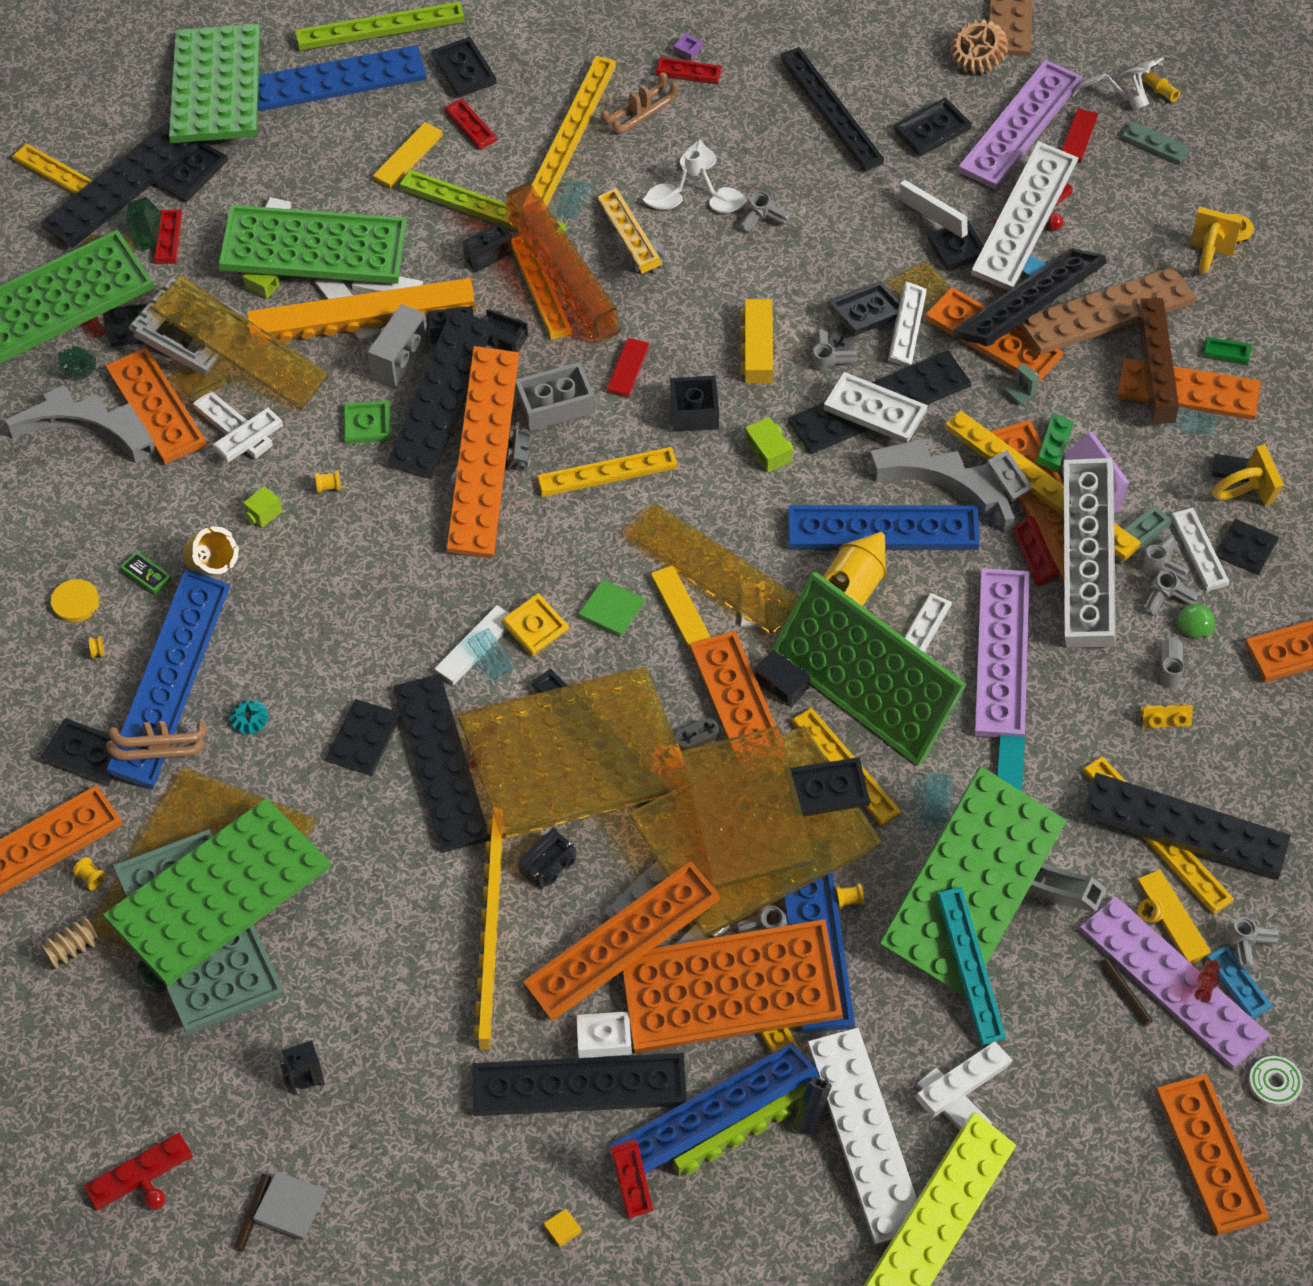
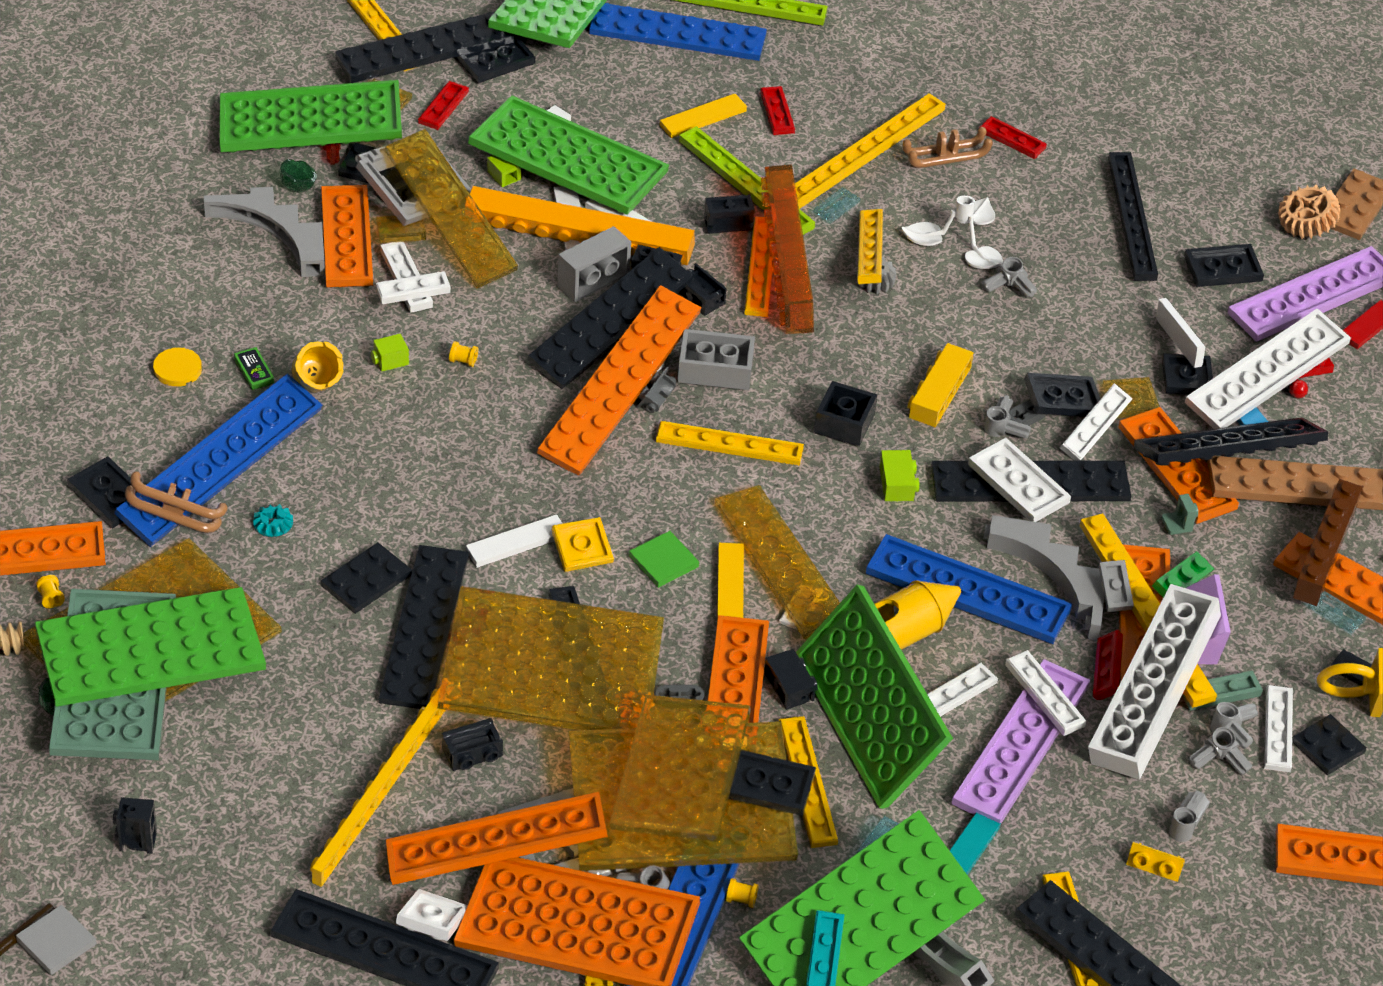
camera: 20 degrees right, 10 degrees down
(96, 647) = (172, 410): yellow bush -> none
(144, 223) = (426, 84): clear green slope -> none
(367, 422) = (530, 319): bright green tile -> none
(464, 67) = (799, 61): black plate -> none
(484, 659) = (528, 571): clear light blue tile -> none
(628, 368) = (803, 363): red tile -> none
(688, 46) = (1023, 116): medium lavender plate -> none
(1000, 600) = (1045, 693): none -> white tile
(1196, 621) = (1236, 789): bright green hair -> none

